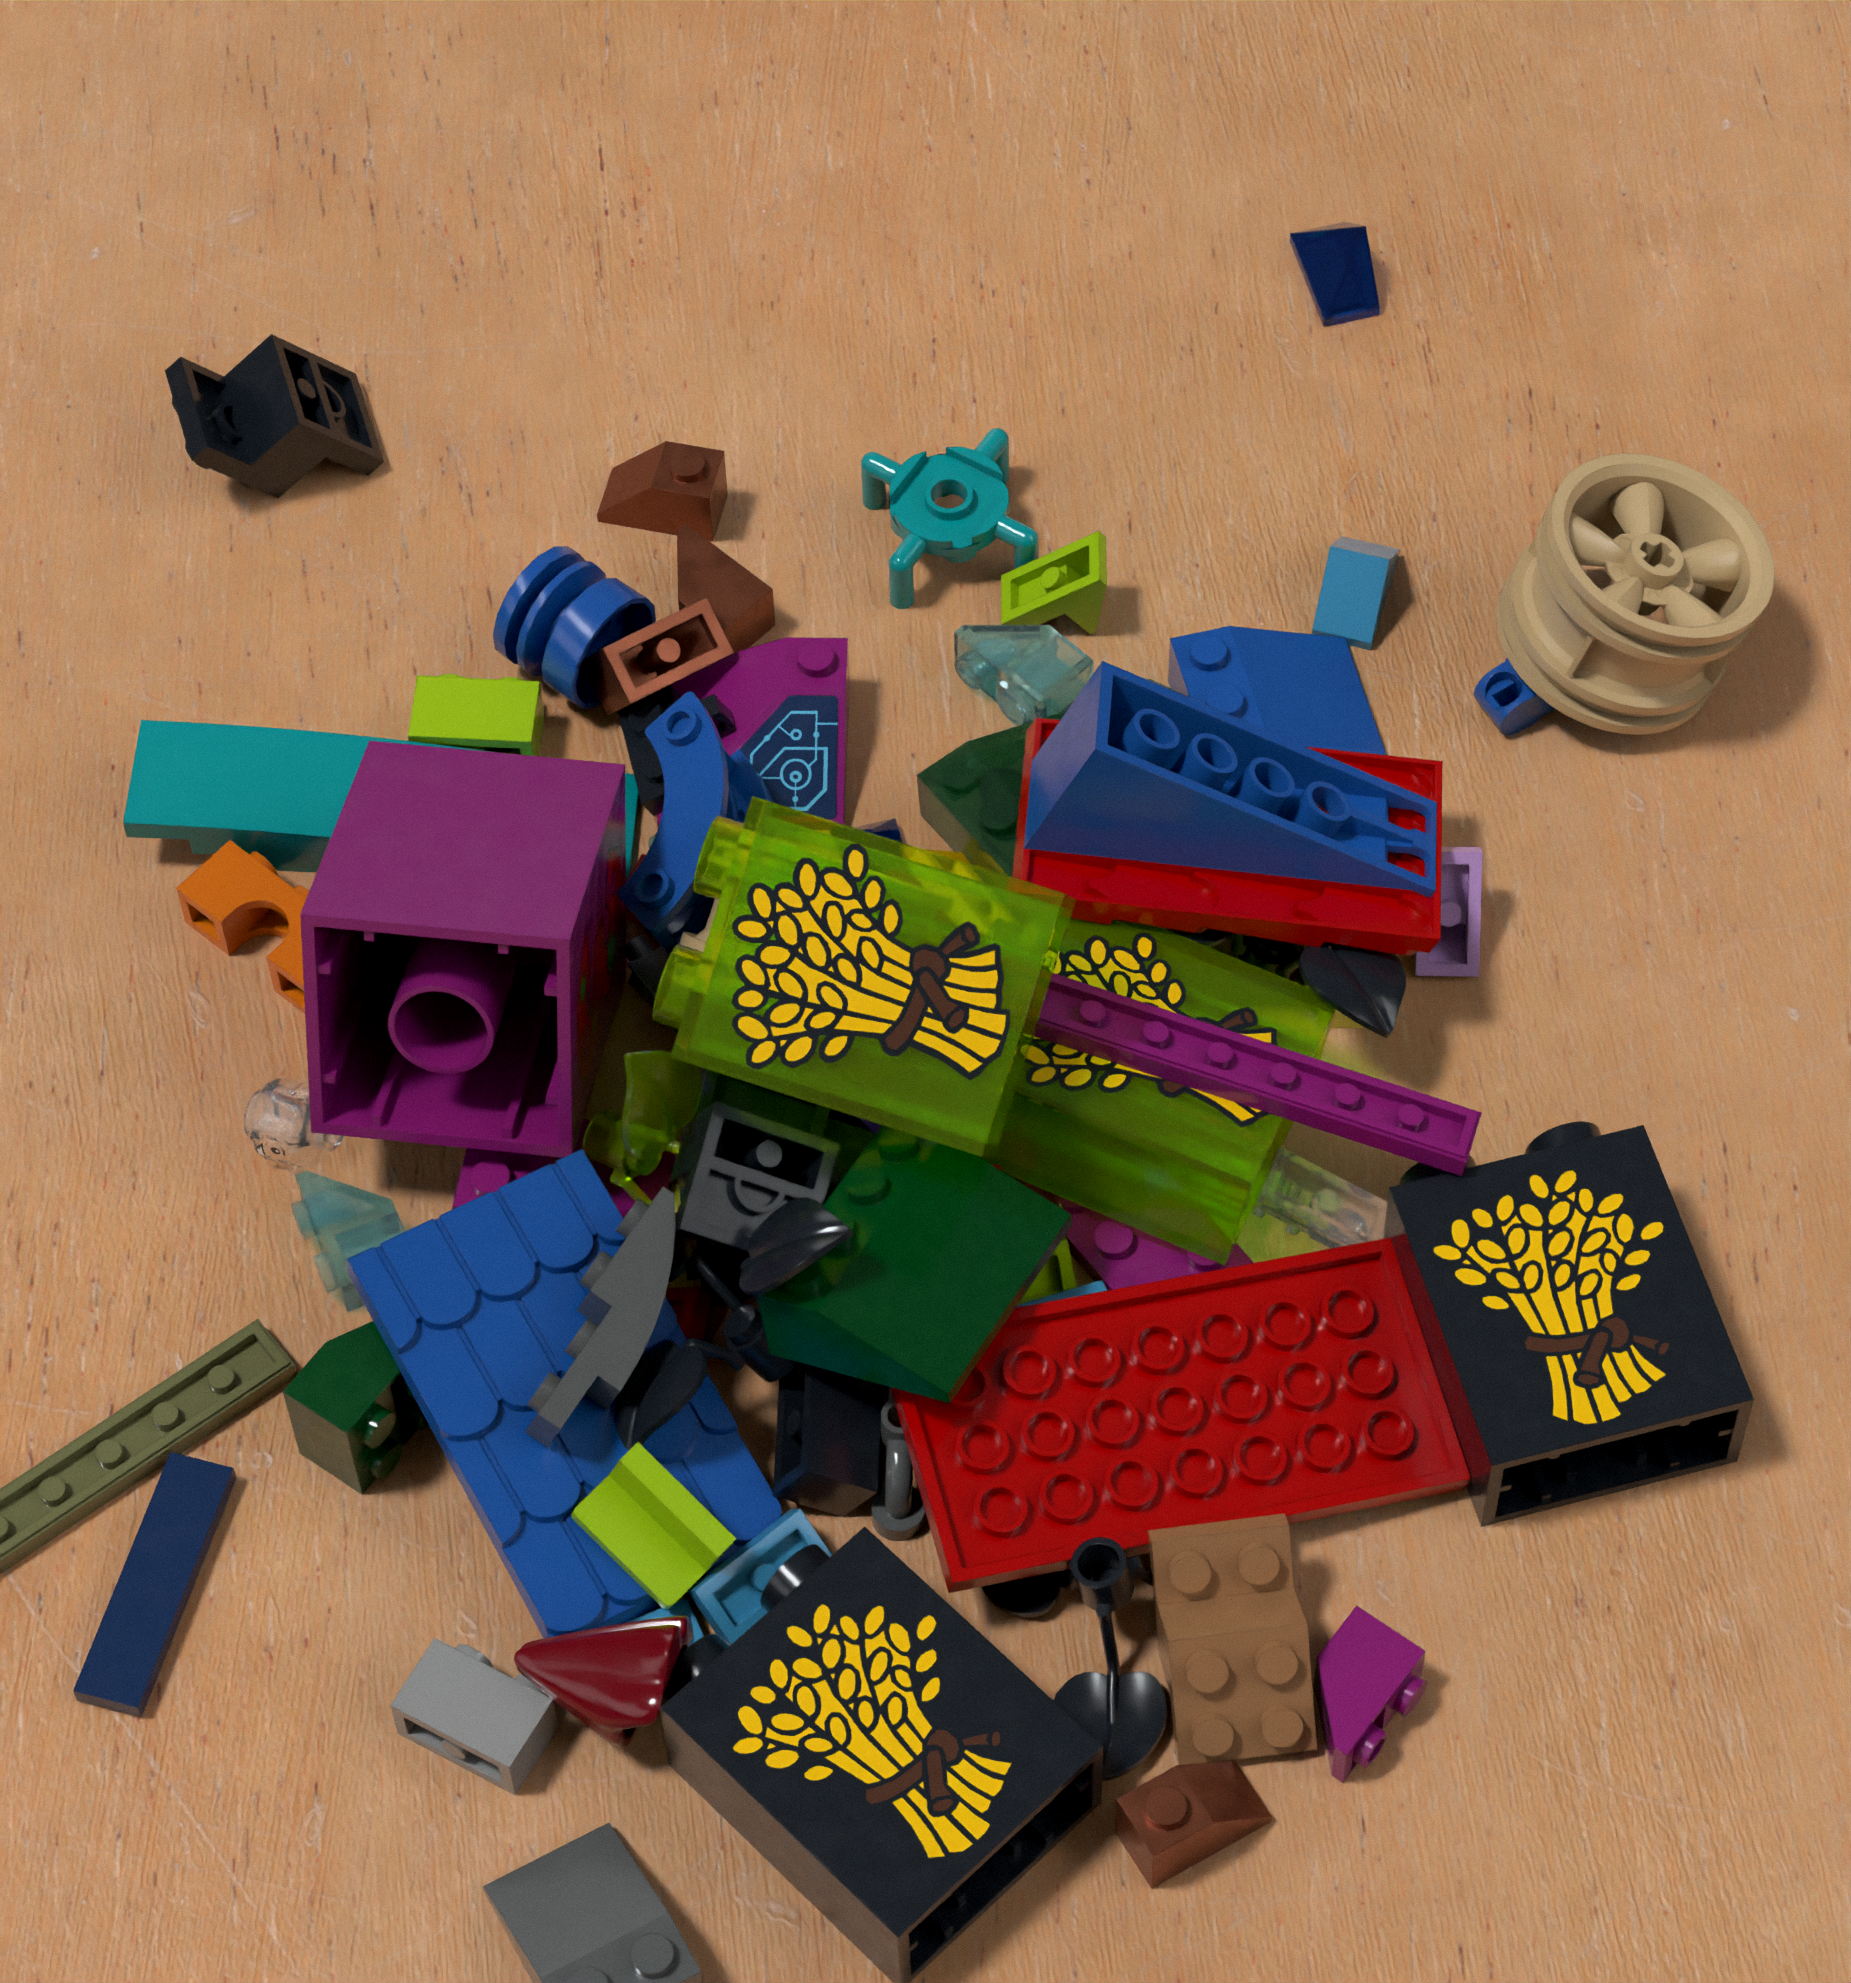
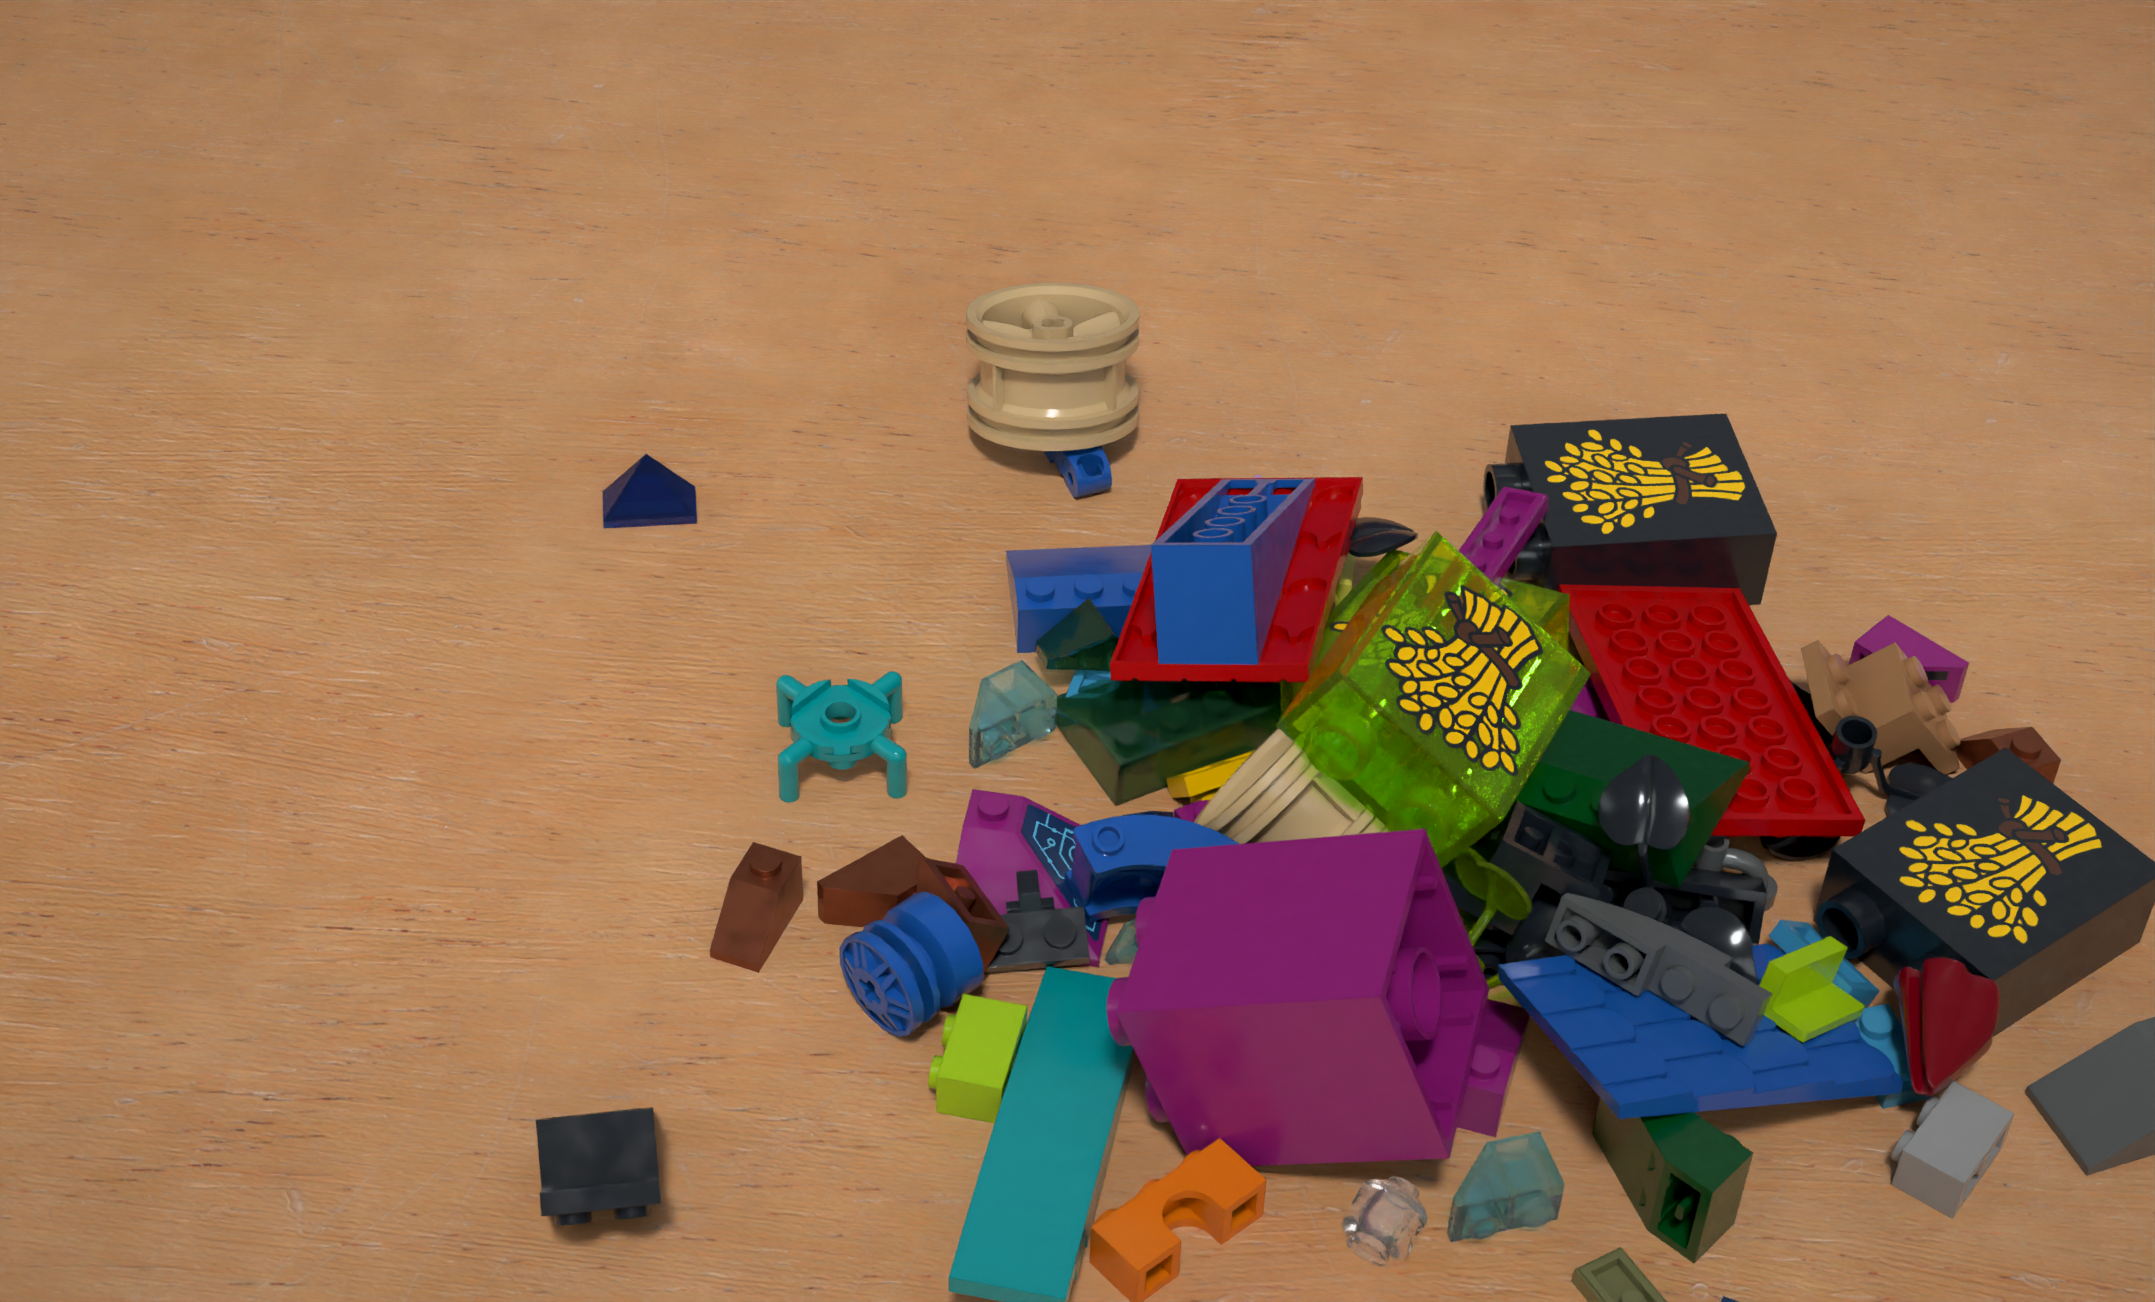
camera: 85 degrees left, 15 degrees down
(1058, 584) = (934, 675): lime slope -> none
(1354, 590) = (965, 532): dark azure slope -> none

